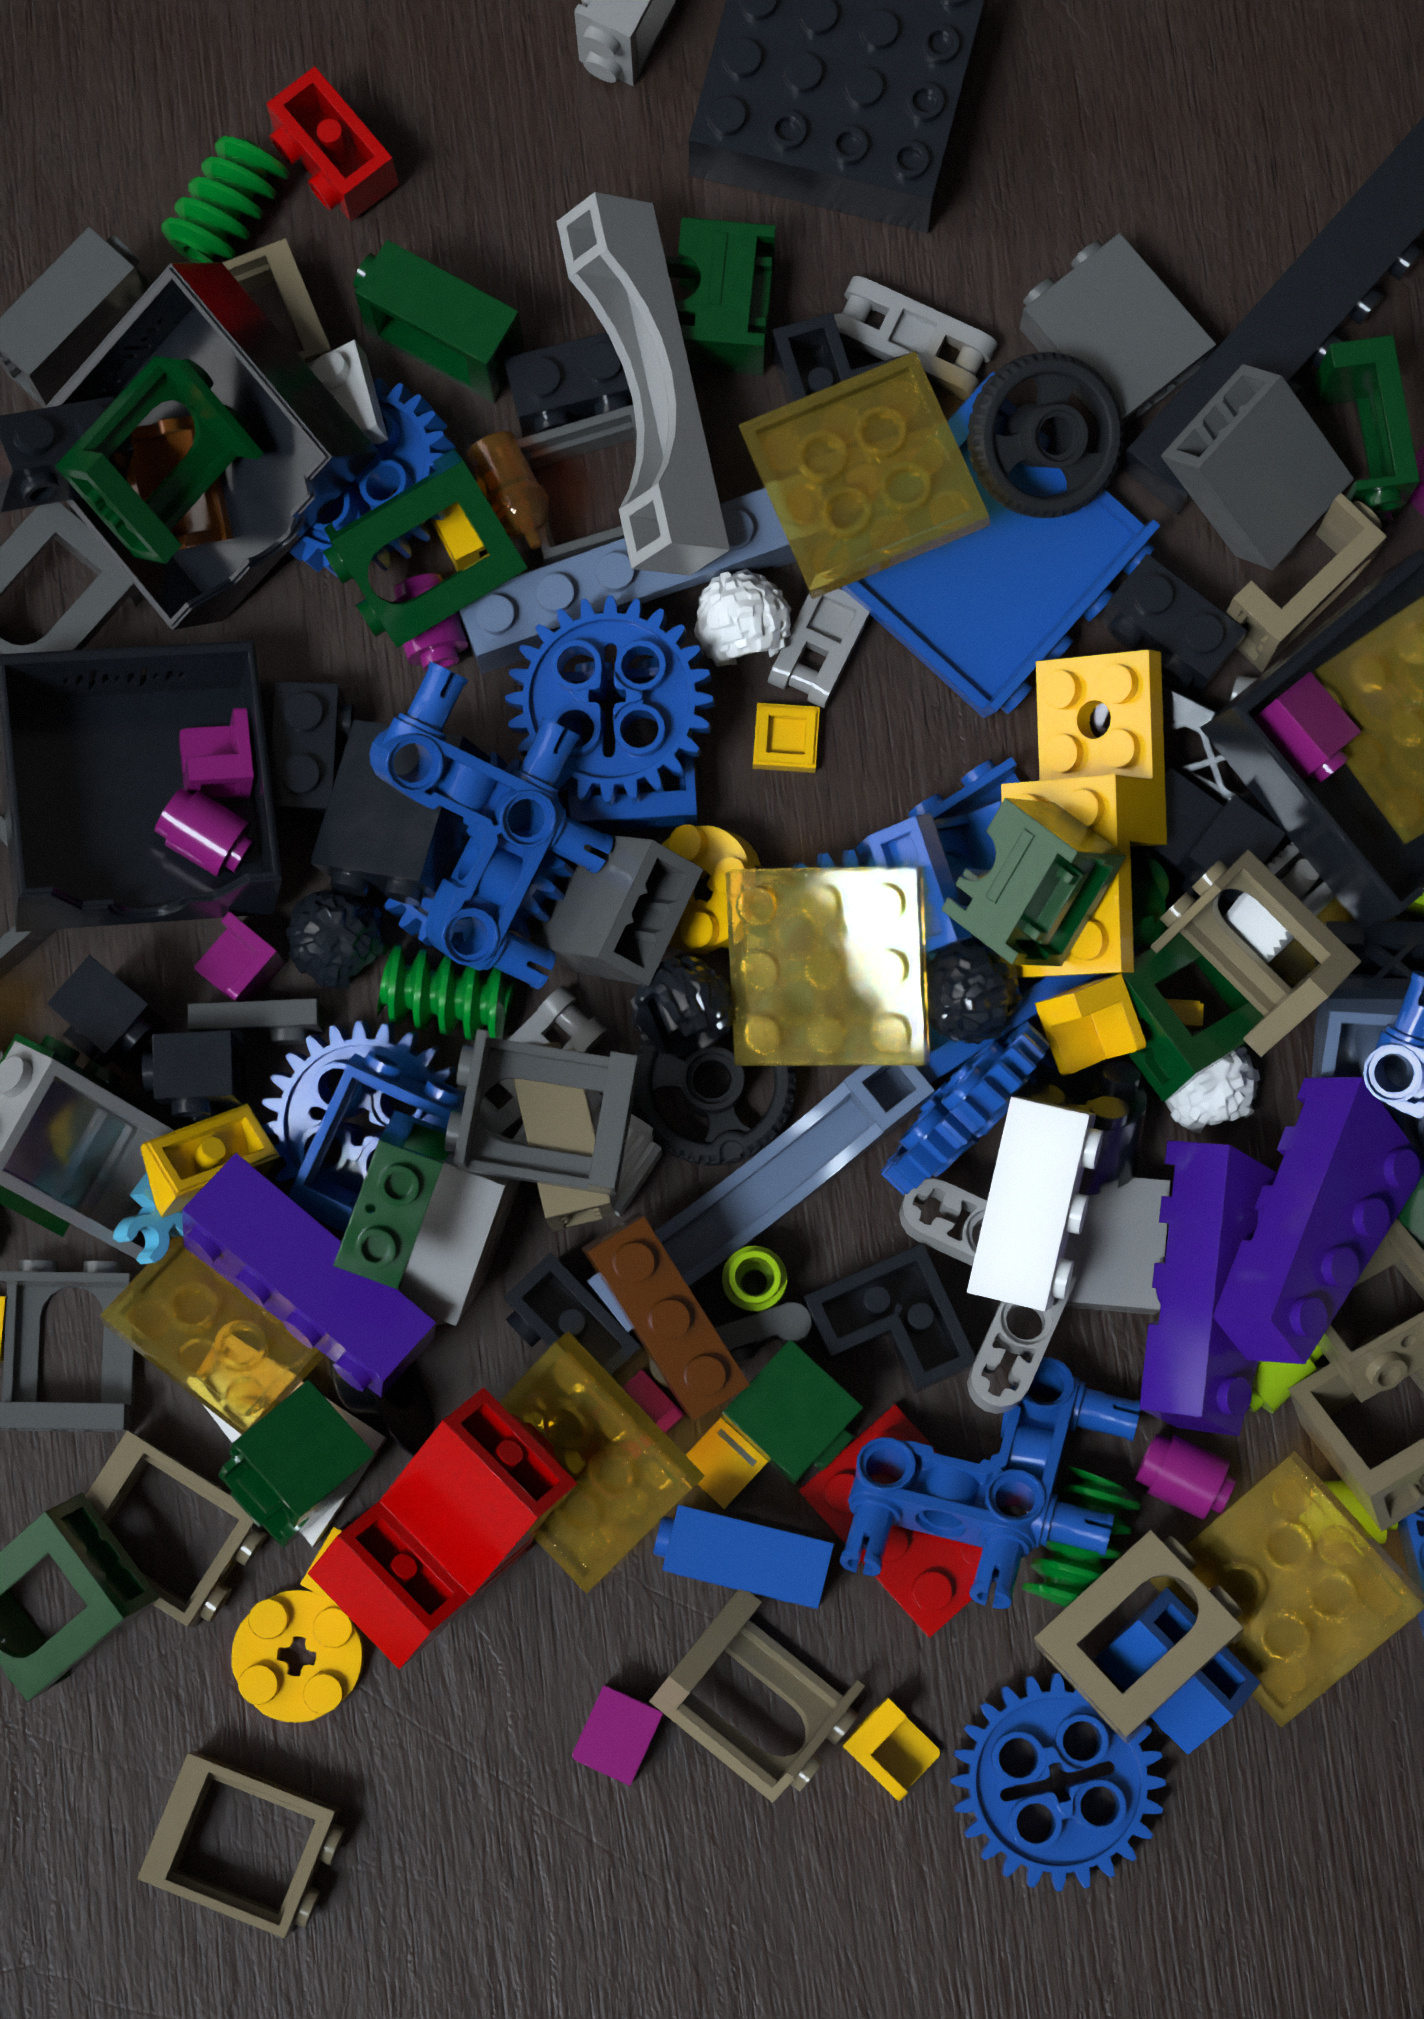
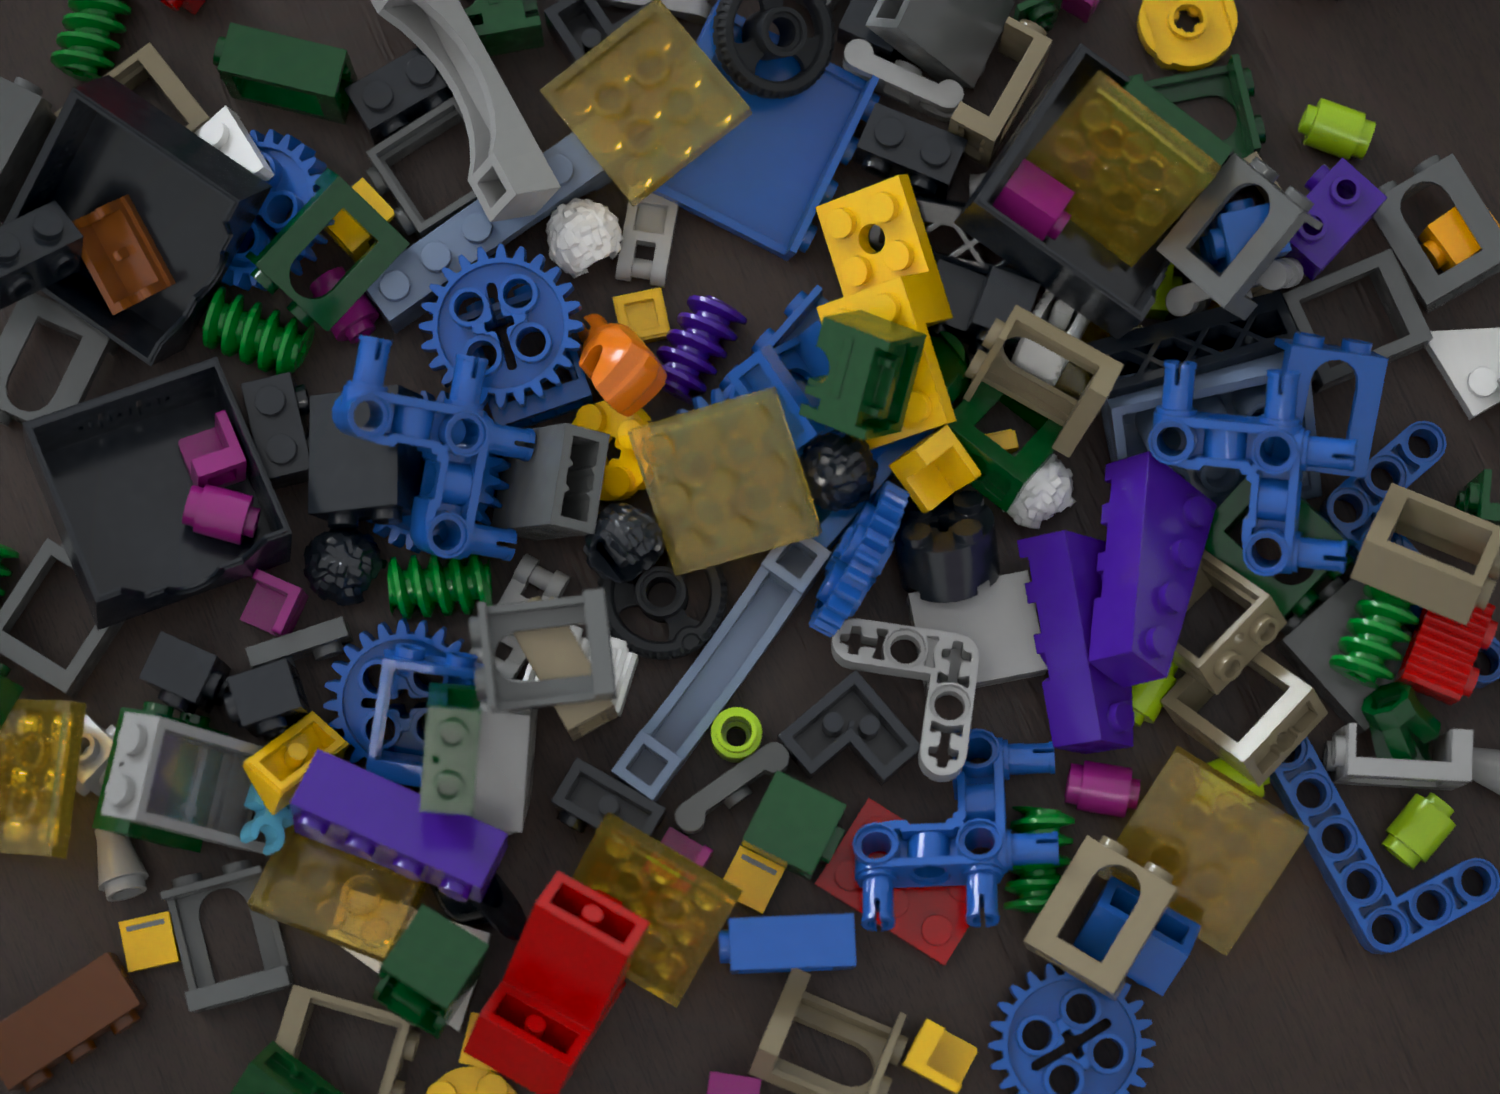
camera: 20 degrees left, 0 degrees up
(217, 441) = (144, 211): dark green panel -> none
(309, 629) = (255, 336): none -> green piece
(510, 486) = (378, 184): clear orange piece -> none
(665, 1316) = (678, 779): reddish brown brick -> none
(740, 788) = (620, 365): none -> orange piece
(840, 790) = (696, 344): none -> dark purple piece
(1035, 1204) = (932, 615): white brick -> none
(1188, 538) = (903, 81): none -> light grey plate

